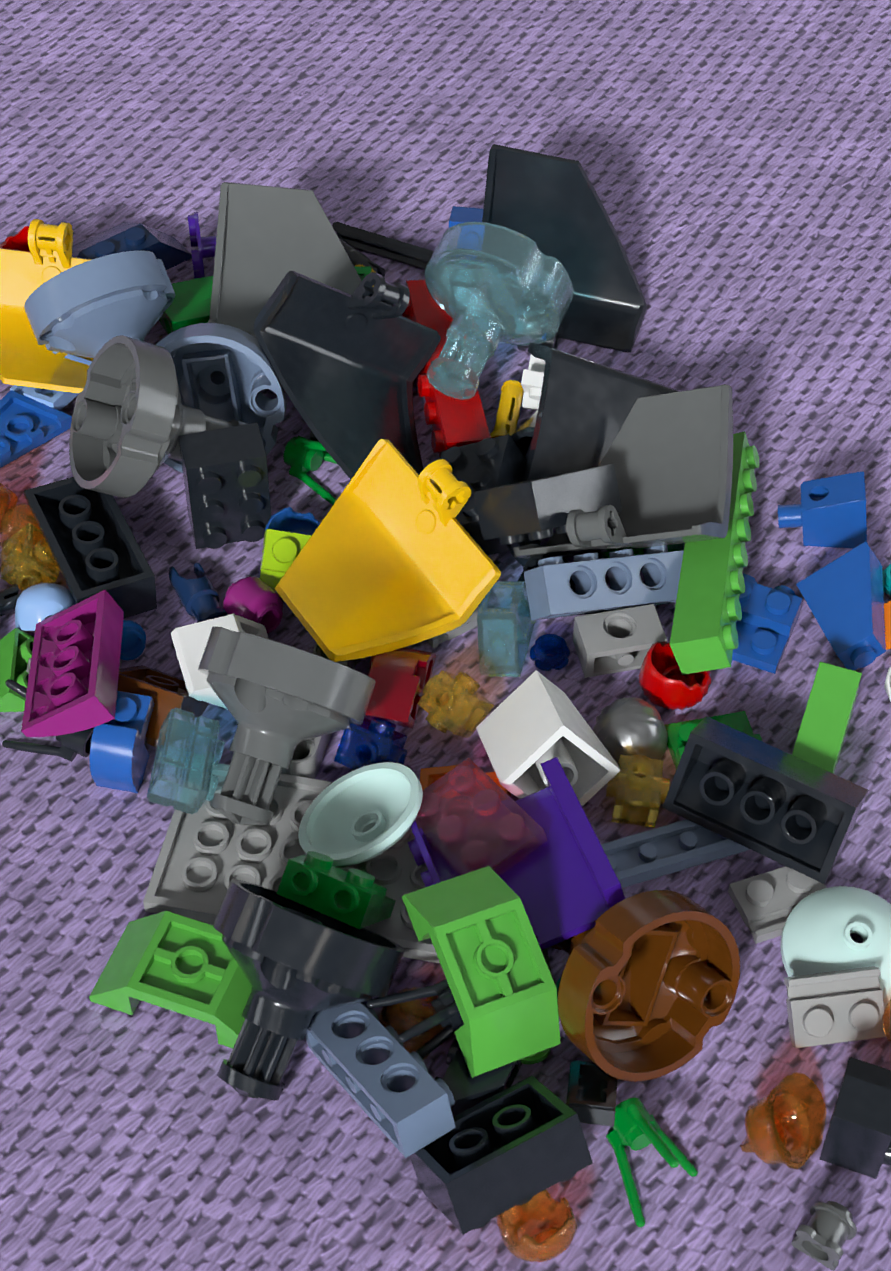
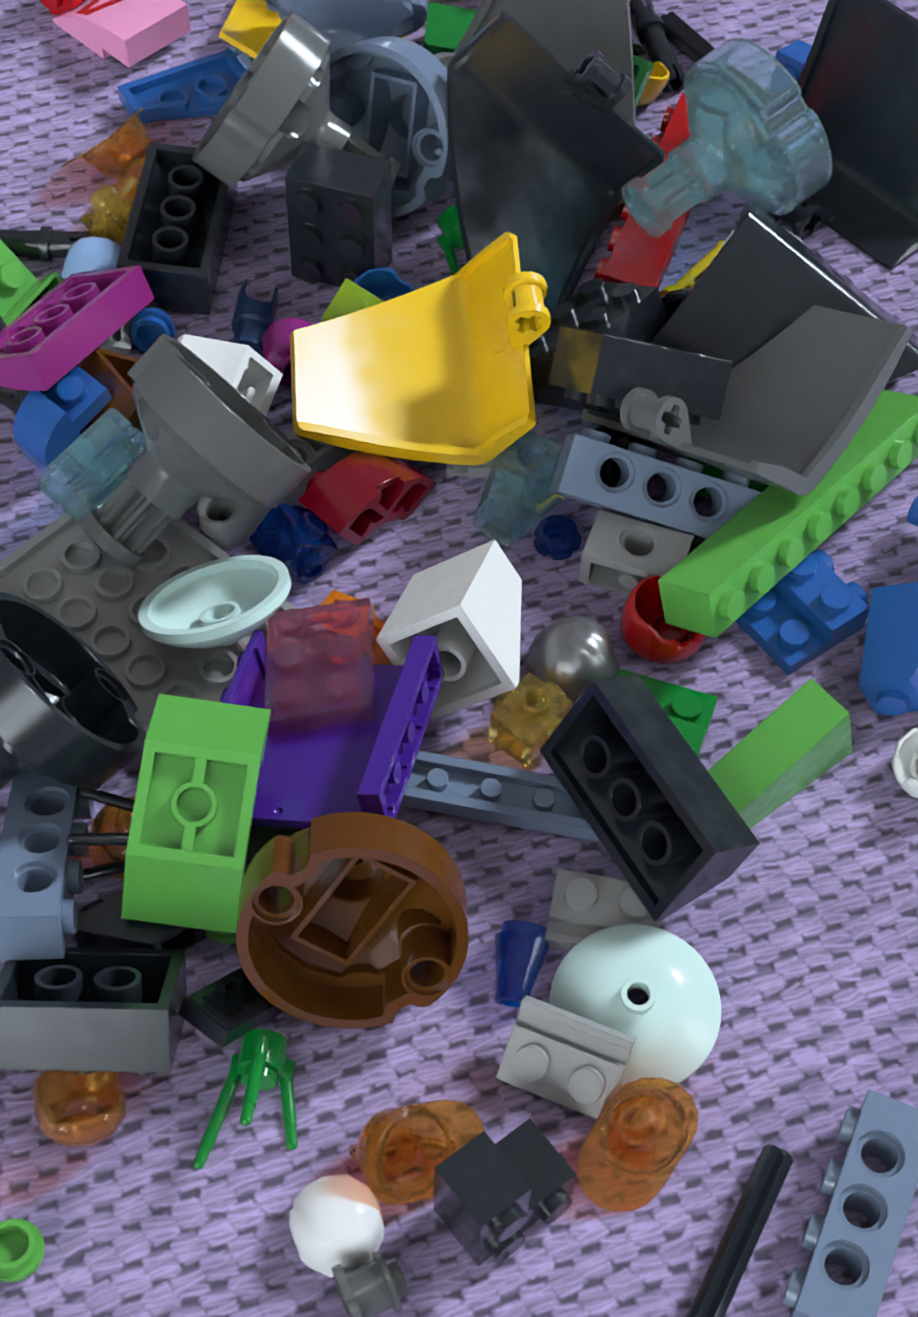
camera: 30 degrees right, 5 degrees up
(334, 892) = (121, 659): green plate -> none
(454, 703) = (410, 538): clear yellow brick -> none
(756, 962) = (518, 960): none -> clear blue cone
(767, 1205) = (336, 1223): none -> white hair

